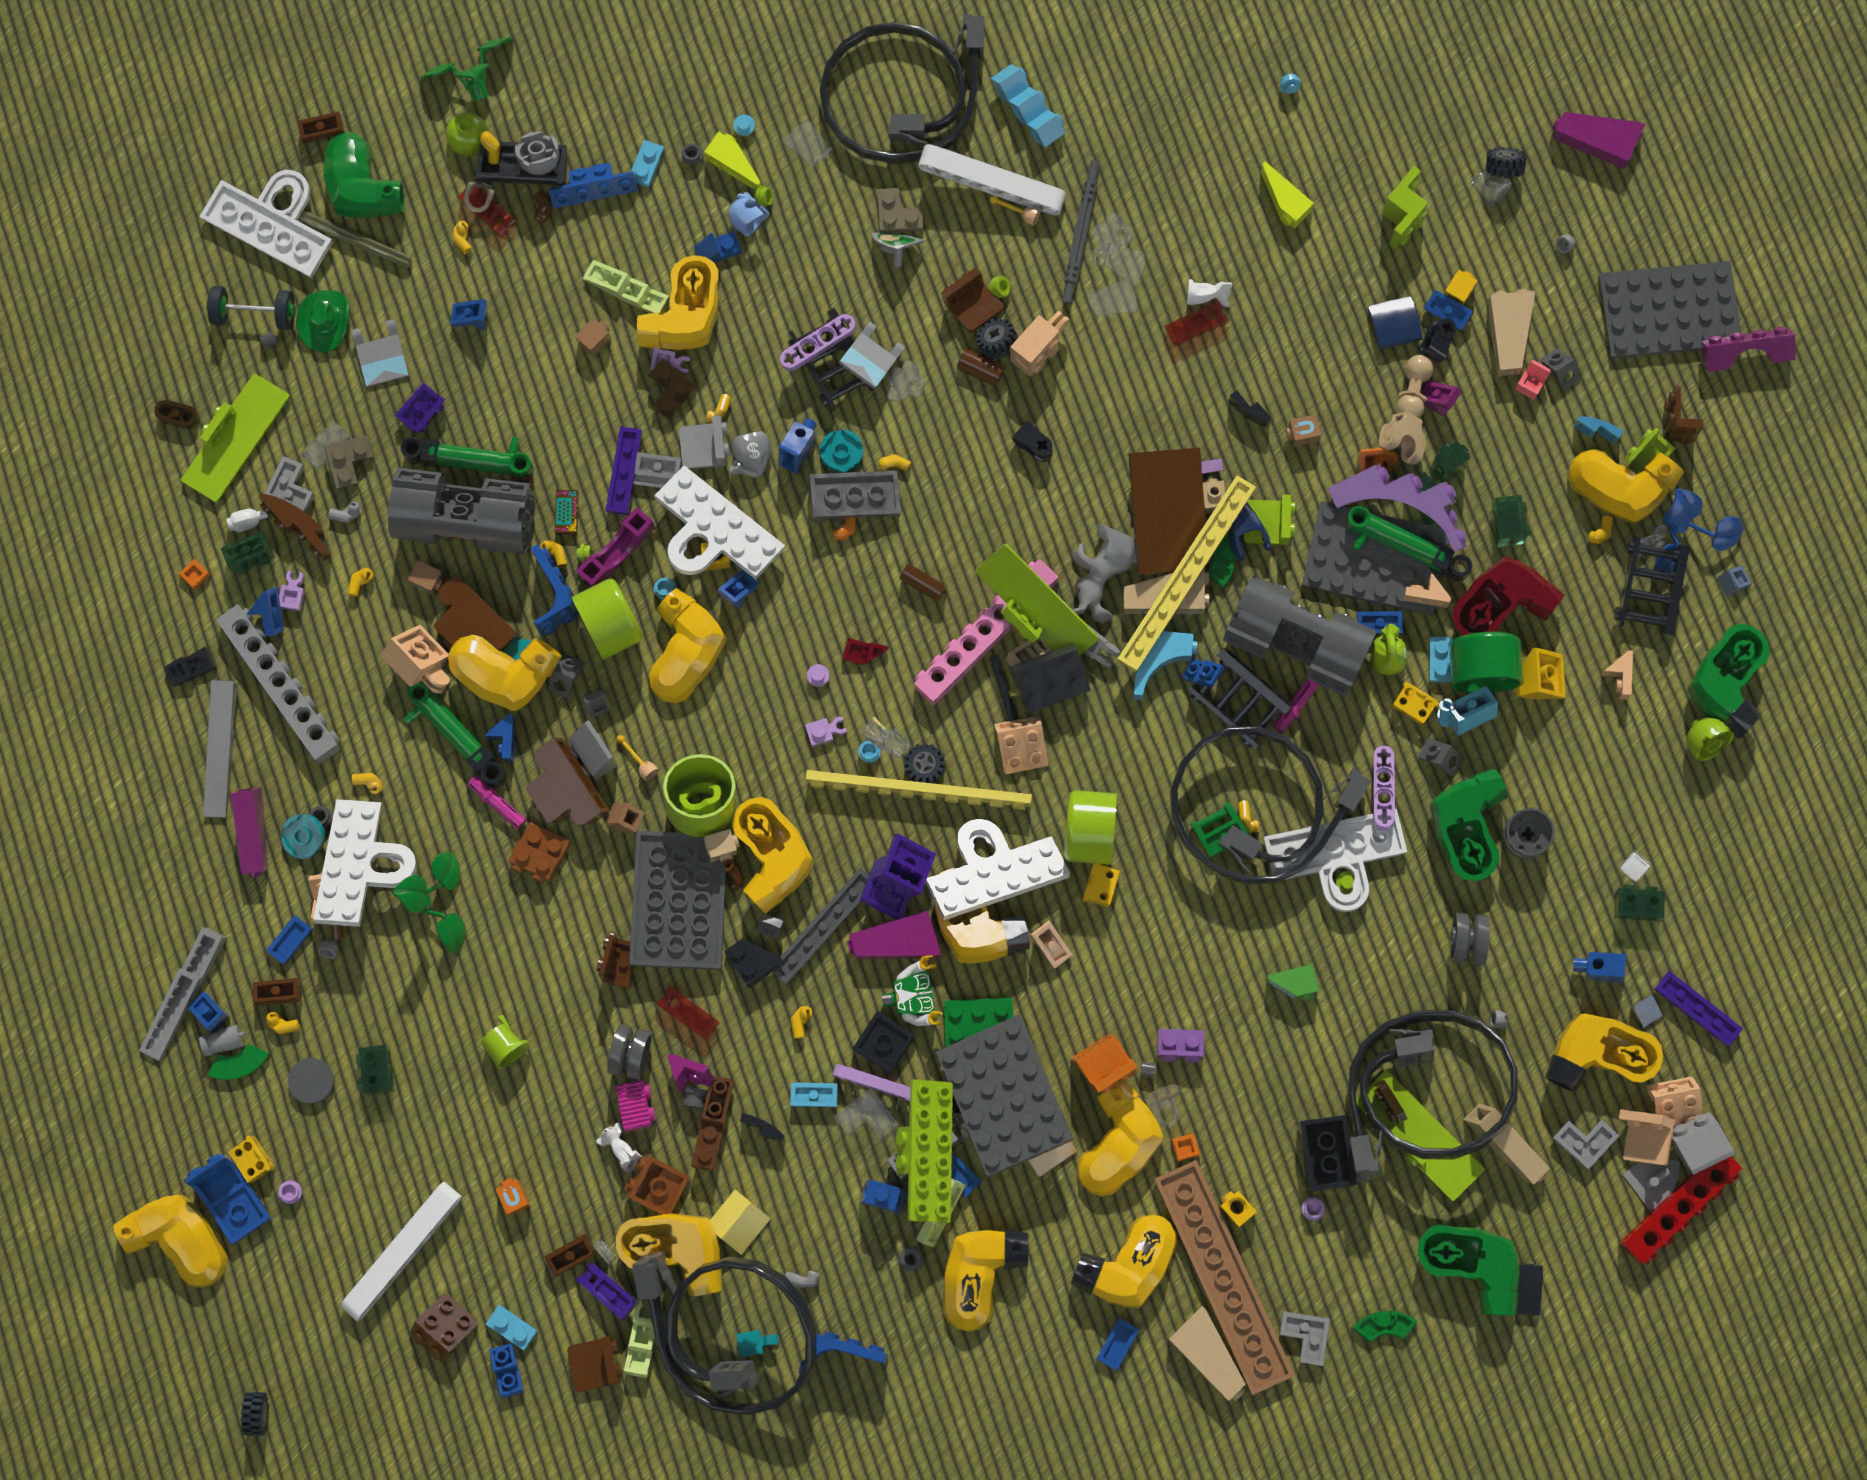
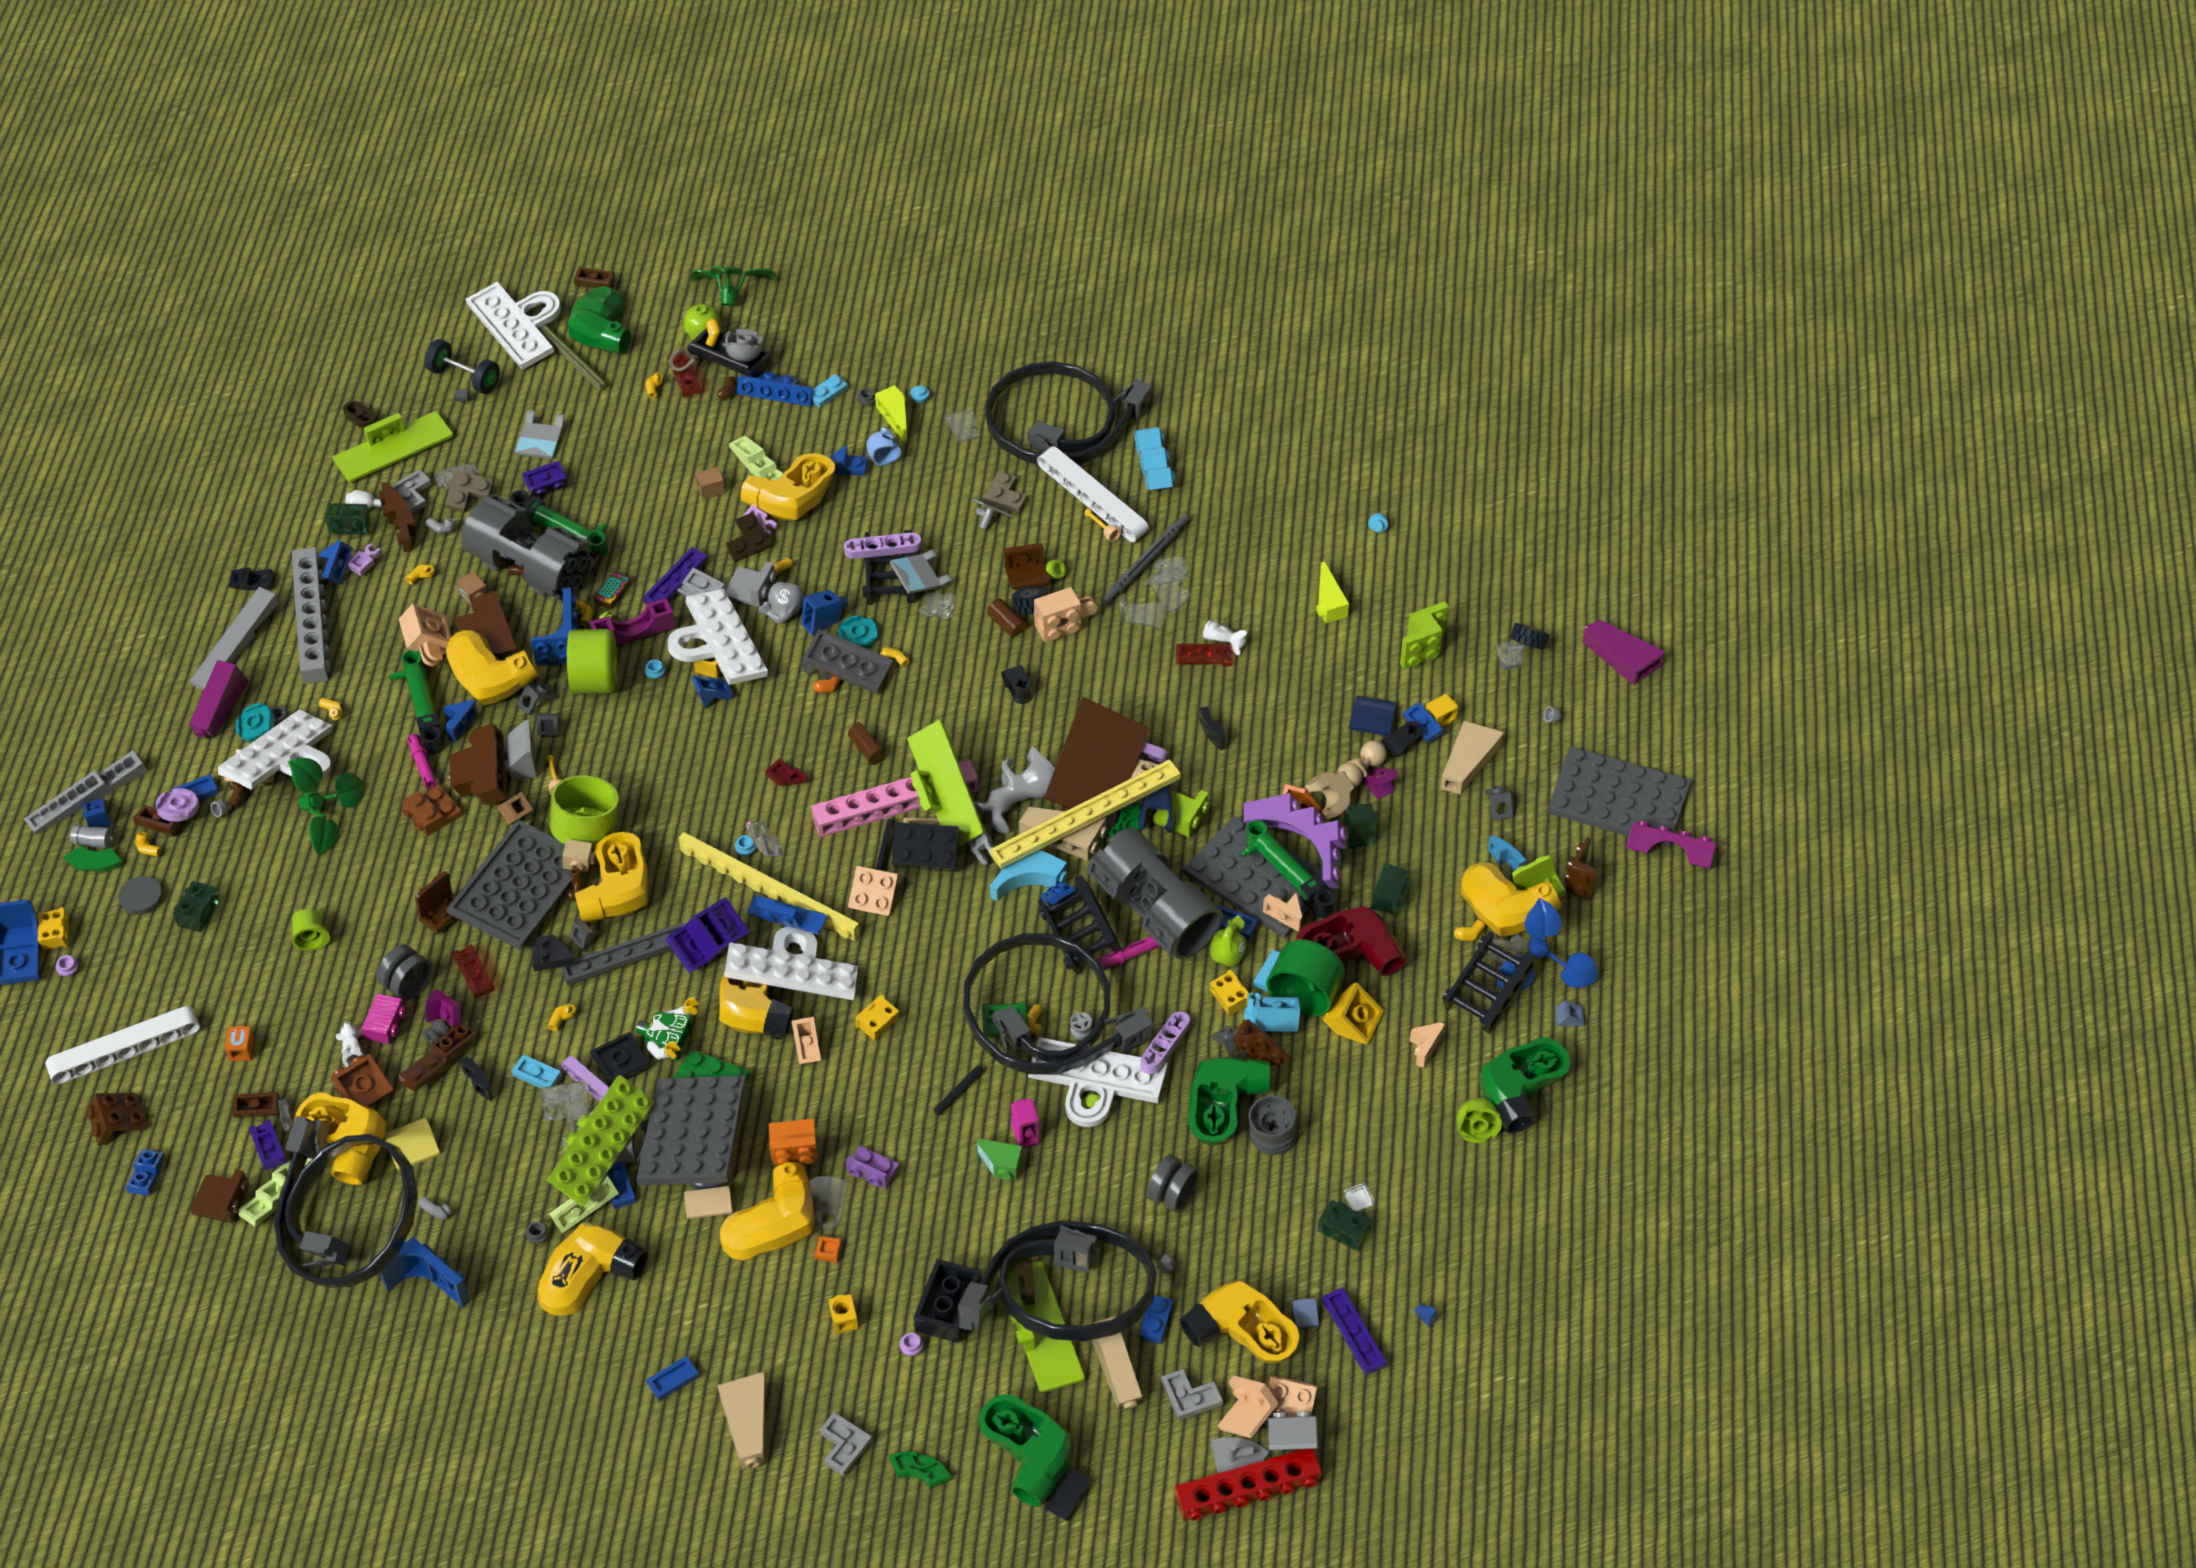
camera: 20 degrees right, 25 degrees down
(194, 574) = (299, 522): orange tile -> none
(287, 968) = (177, 805): none -> lavender tile
(322, 320) = (510, 397): green hat -> none
(469, 313) = (628, 432): blue slope -> none
(511, 1327) = (172, 1142): medium azure plate -> none
(689, 652) = (643, 717): yellow piece -> none
(752, 1343) = (364, 1239): teal plate -> none
(763, 196) = (905, 442): lime plate -> none
(818, 675) = (738, 776): lavender plate -> none
(821, 732) = (717, 816): lavender plate -> none
(883, 1196) = (537, 1167): blue torso -> none
(899, 939) = (677, 984): magenta slope -> none
(925, 756) = (786, 864): black wheel -> none
(961, 814) = (787, 915): none -> blue bracket
(1090, 827) = (891, 961): lime piece -> none
(1136, 1268) = (724, 1320): yellow piece -> none
(1148, 1069) = (832, 1171): dark grey piece -> none
(1215, 925) = (958, 1090): none -> black bar
(1224, 1277) = (798, 1366): medium nougat plate -> none
(1297, 801) = (1080, 1019): none -> light grey wheel
(1302, 938) = (1025, 1123): none -> dark pink brick
(1303, 430) = (1249, 760): medium nougat brick -> none
(1472, 754) = (1259, 1044): none -> reddish brown bracket
(1524, 1086) = (1156, 1320): none -> blue plate
(1533, 379) = (1468, 799): coral bracket -> none
(1612, 970) = (1284, 1258): blue torso -> none
(1756, 962) = (1427, 1314): none -> blue tile

